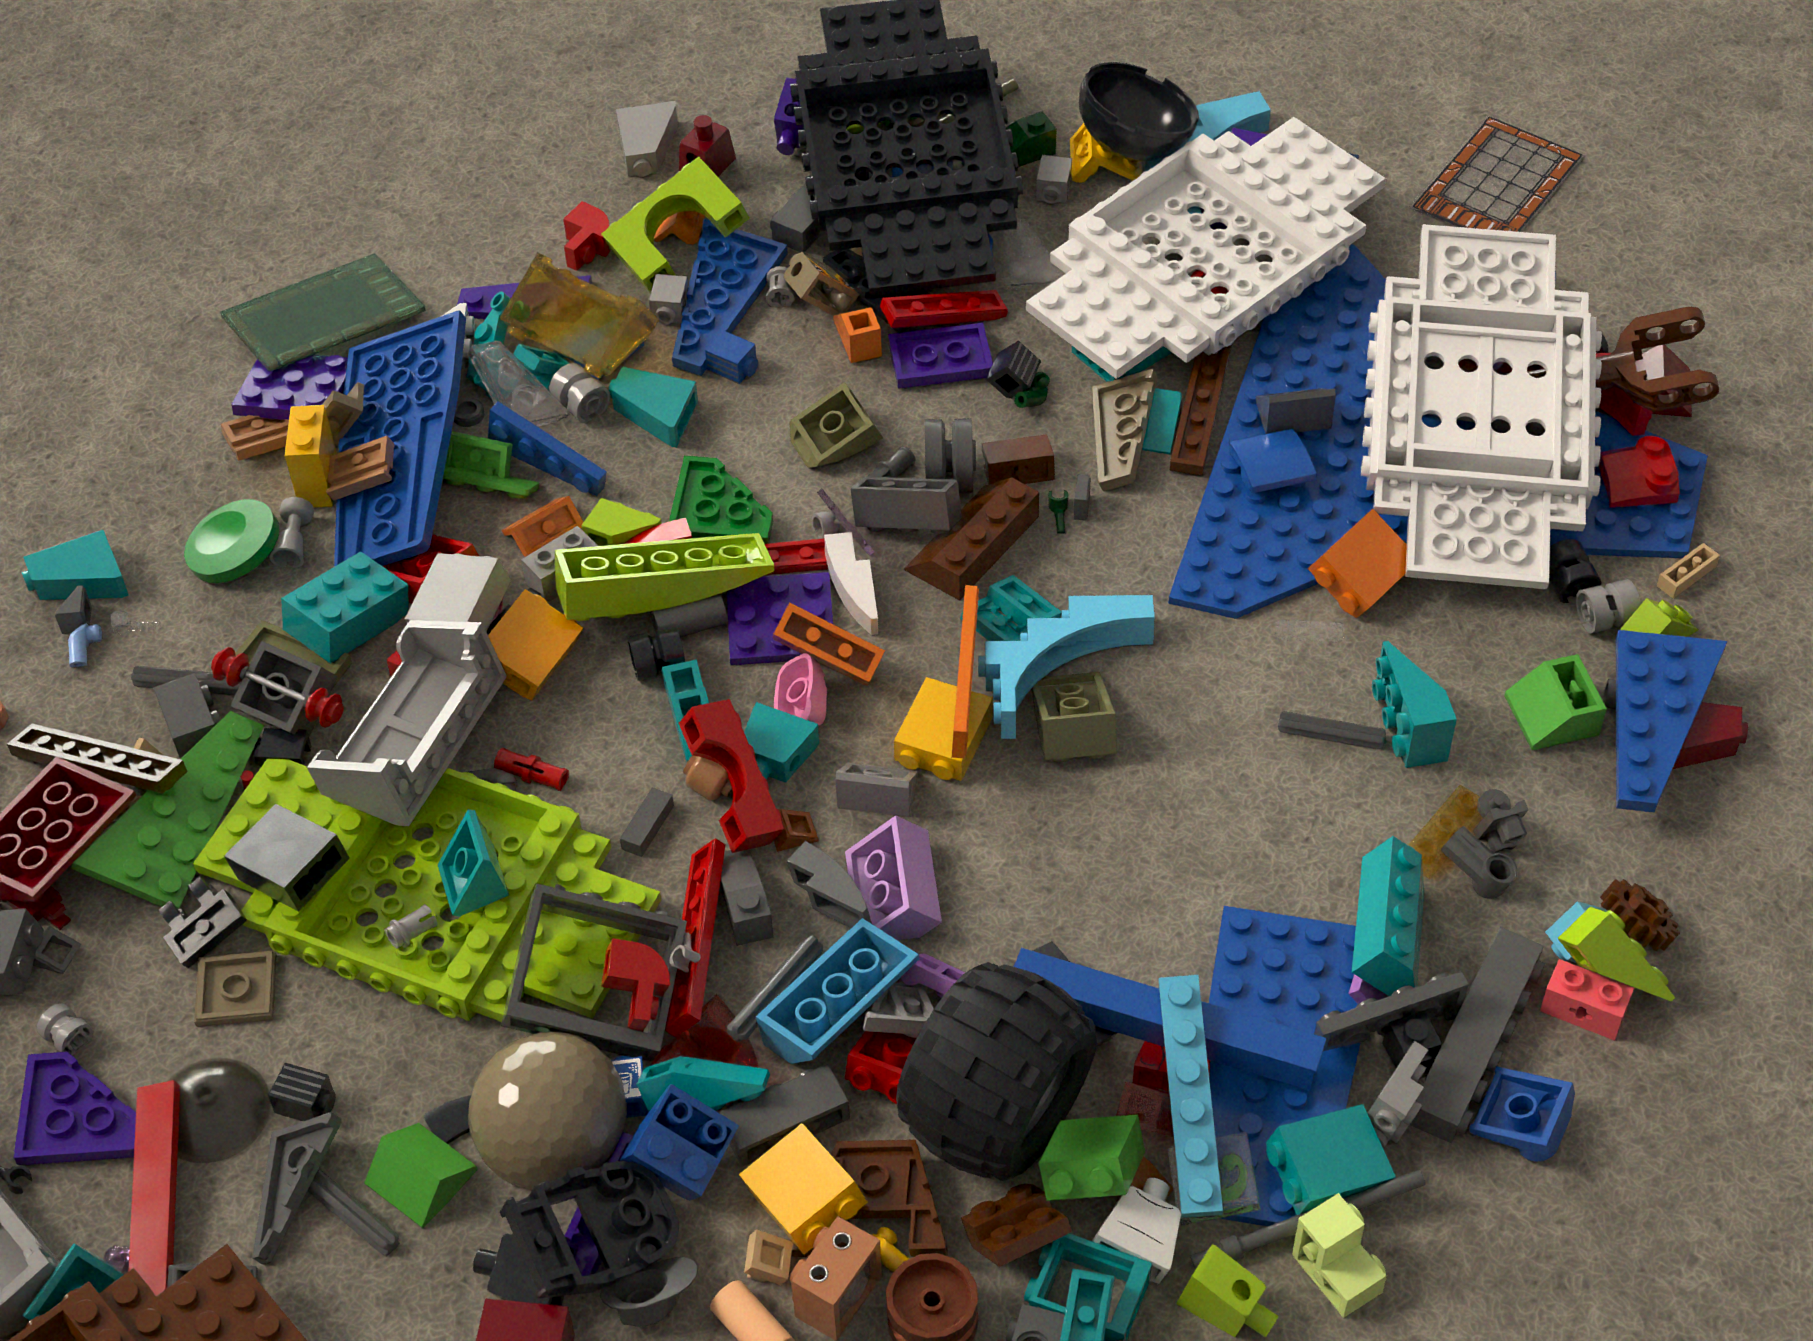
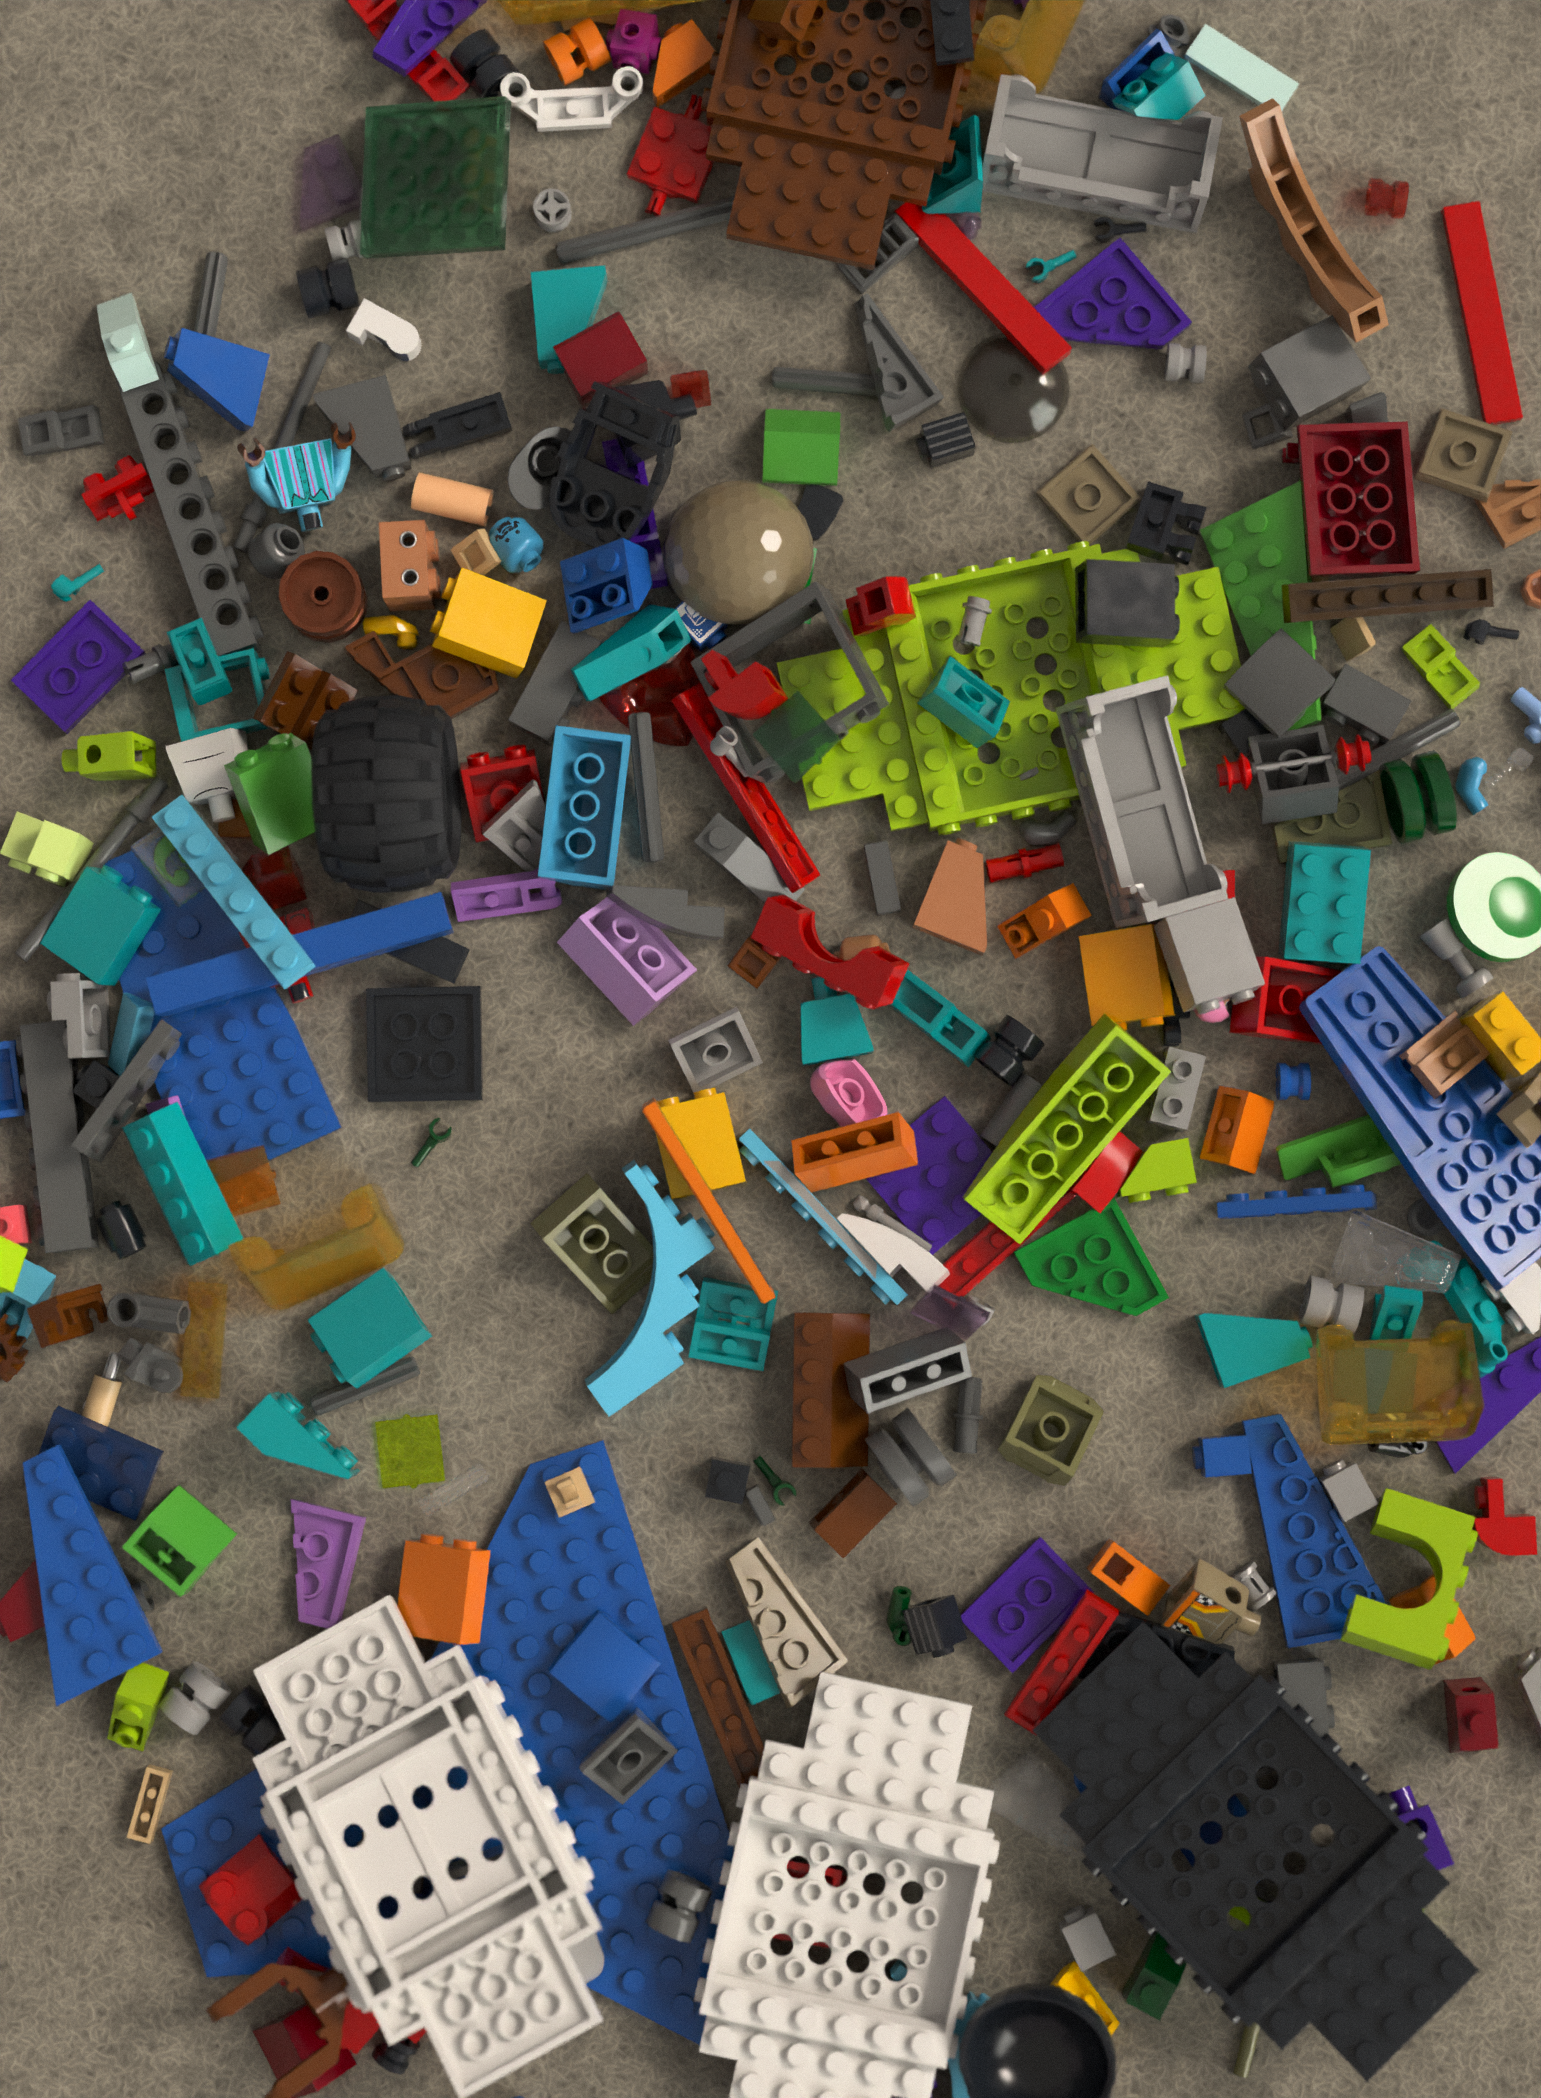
camera: 140 degrees right, 35 degrees up
(54, 716) = (1480, 629): none -> black hand
(90, 1183) = (1049, 265): none -> teal hand
(110, 710) = (1440, 667): none -> lime slope
(168, 631) = (1468, 784): none -> dark azure arm
(212, 621) = (1418, 797): none -> dark green wheel
(232, 744) = (1279, 683): none -> dark grey slope
(464, 1281) = (694, 383): none -> clear red slope
(467, 965) = (880, 605): none -> red brick
(476, 527) = (1293, 1081): none -> blue wheel
(551, 718) = (1044, 920): none -> orange slope
(604, 771) = (956, 899): none -> nougat slope
(624, 913) = (796, 736): none -> clear green piece
(726, 1246) = (516, 544): none -> dark azure head
(845, 619) = (877, 1214): none -> light grey piece
(888, 623) = (832, 1231): none -> medium azure plate
(1093, 520) = (727, 1480): none -> black brick
(1109, 920) = (424, 1044): none -> black plate
(1152, 858) = (430, 1143): none -> dark green hand
(1218, 570) = (569, 1491): none -> tan tile
(1301, 752) = (368, 1329): none -> teal brick
(1303, 813) = (362, 1247): none -> clear yellow windscreen
(1321, 309) = (679, 1905): none -> dark grey wheel
(1325, 674) = (410, 1451): none -> clear neon green piece
(1330, 912) = (245, 1180): none -> clear orange piece
(1361, 1069) = (131, 1031): none -> medium azure slope
(1445, 637) = (326, 1558): none -> medium lavender wing
(1465, 937) = (121, 1229): none -> black brick
(1553, 894) = (67, 1315): none -> reddish brown hinge
(1558, 837) = (103, 1392): none -> tan piece
(1589, 791) = (107, 1463): none -> dark blue plate

